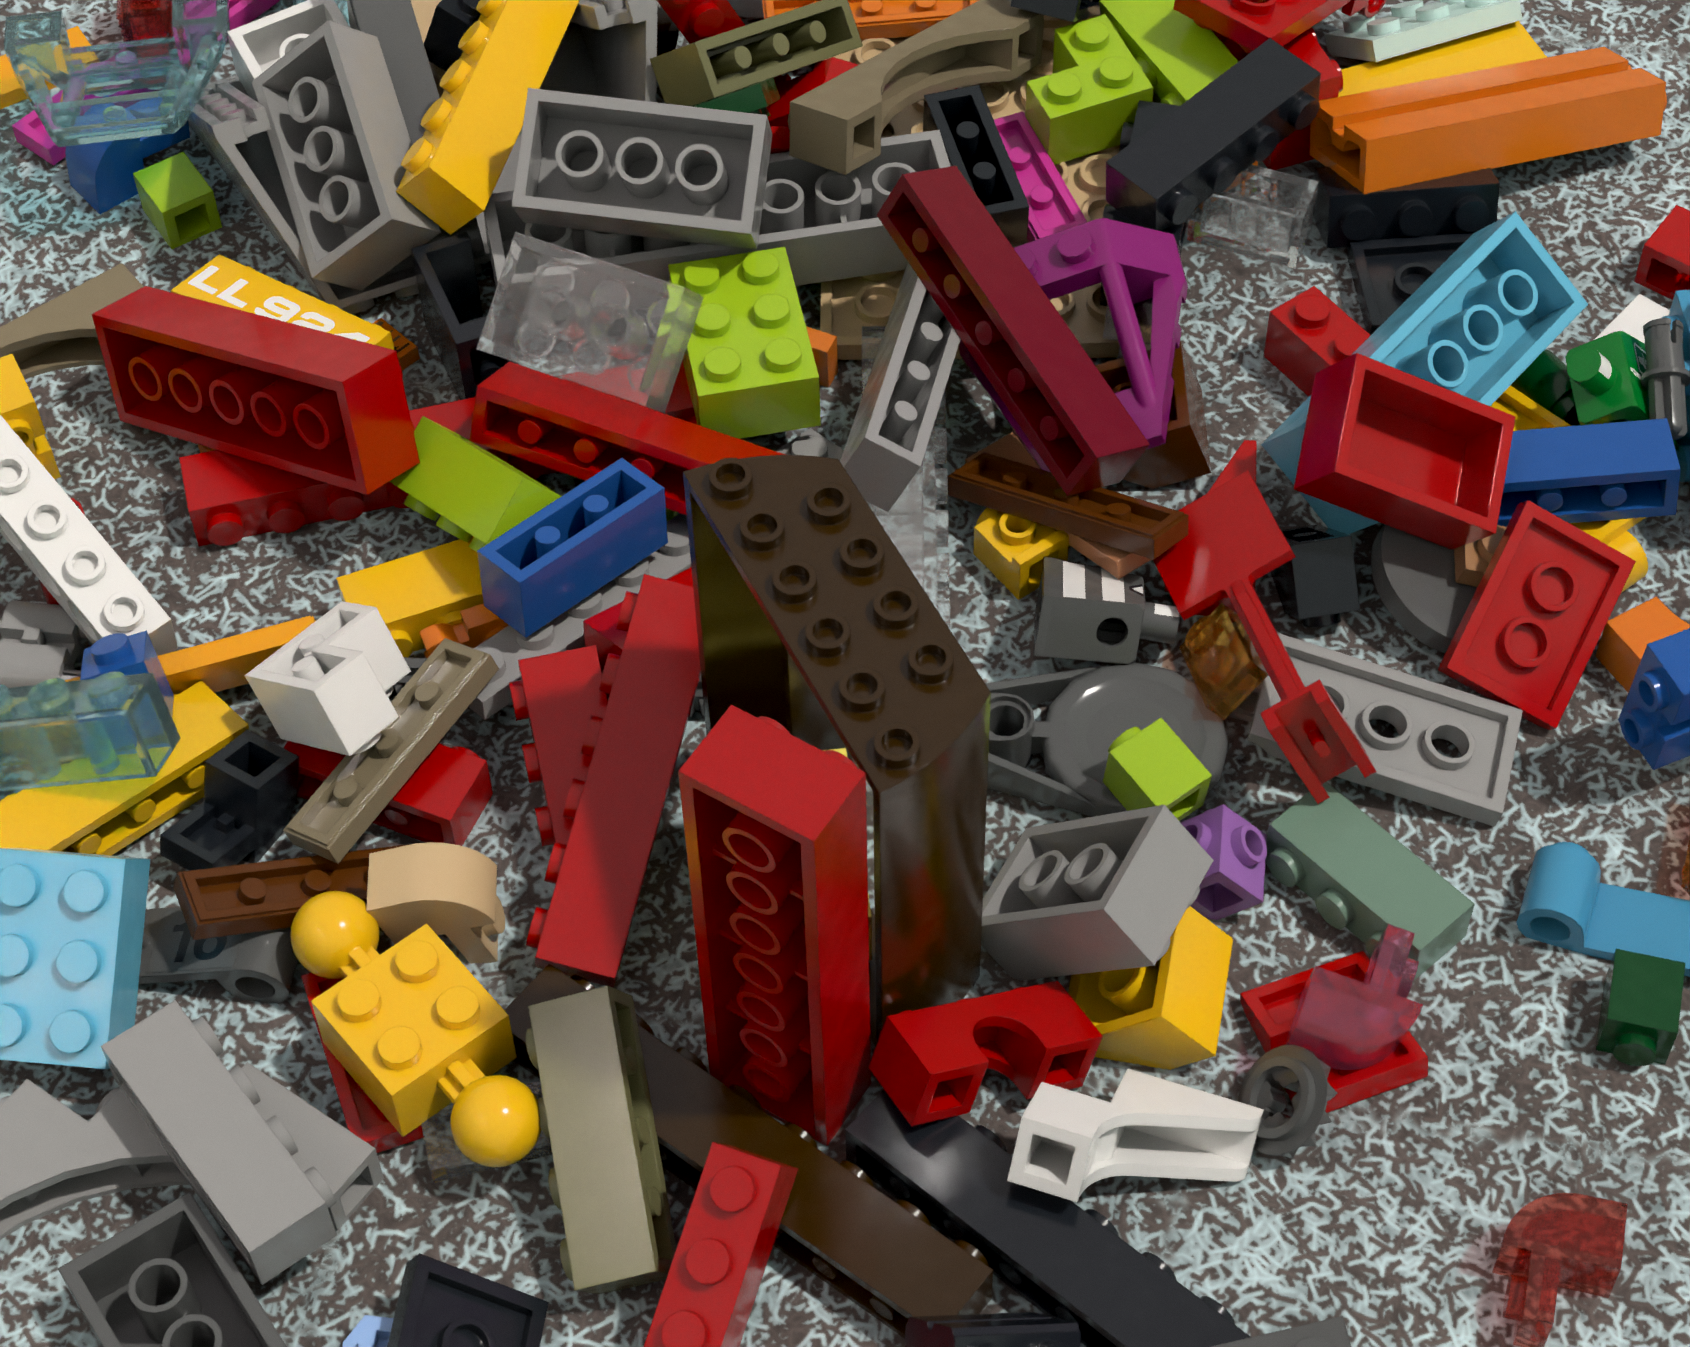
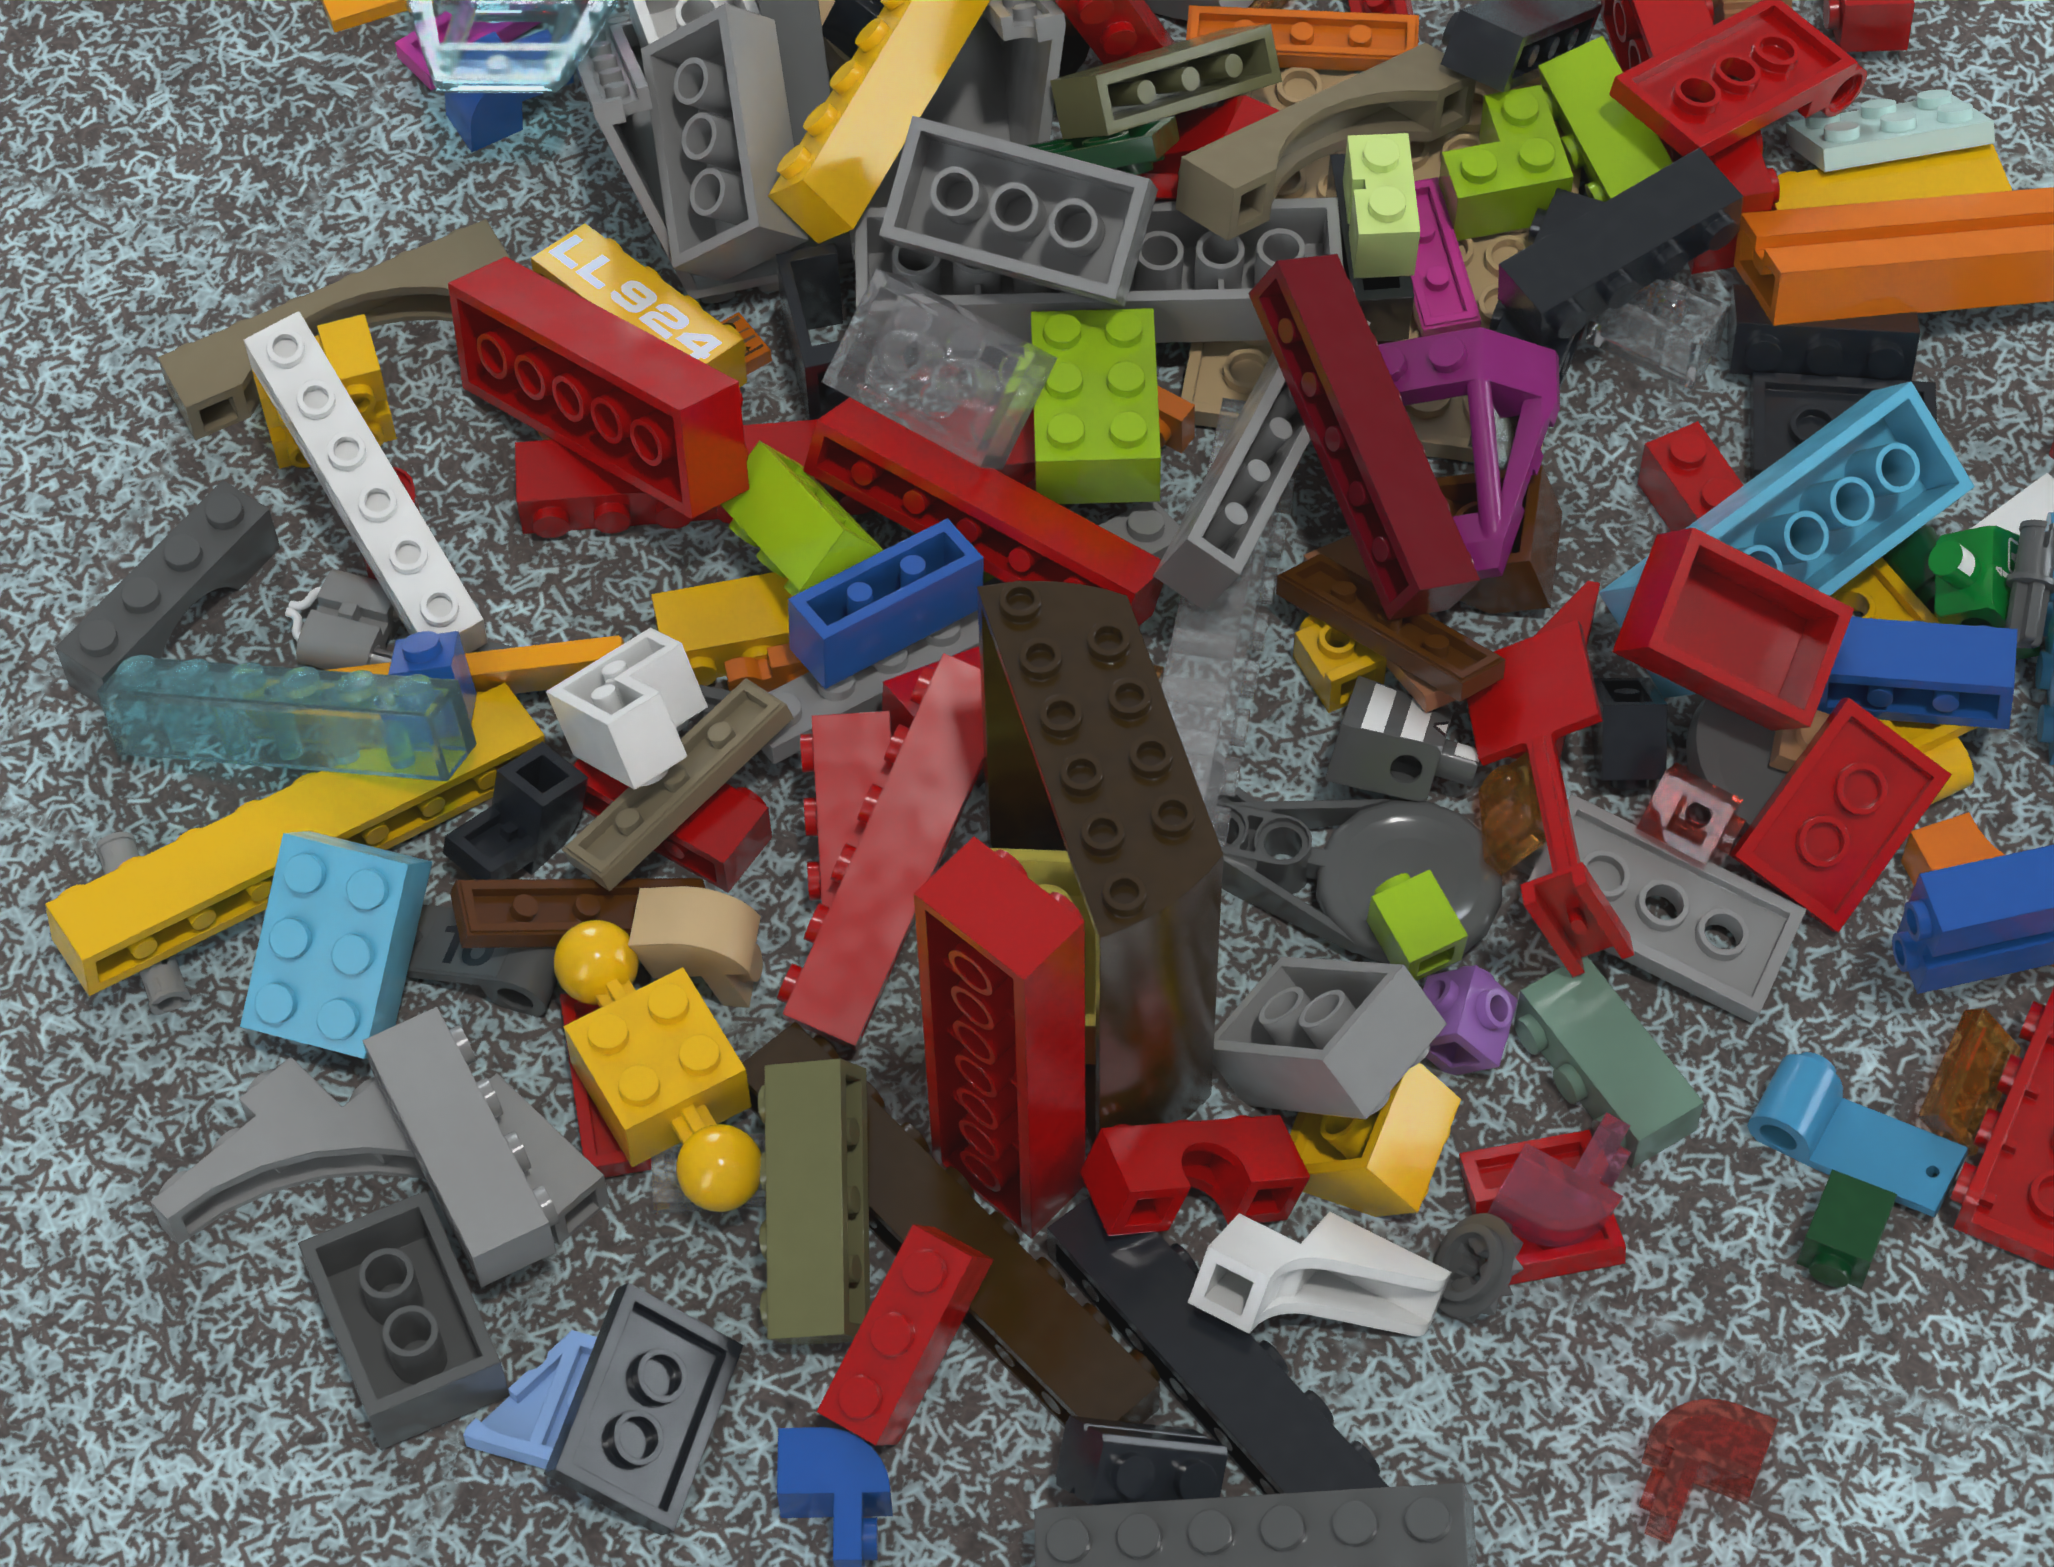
camera: 10 degrees right, 5 degrees up
(177, 200) = (551, 151): lime brick -> none
(984, 125) = (1381, 205): none -> yellowish green piece
(1374, 646) = (1670, 822): none -> clear red brick

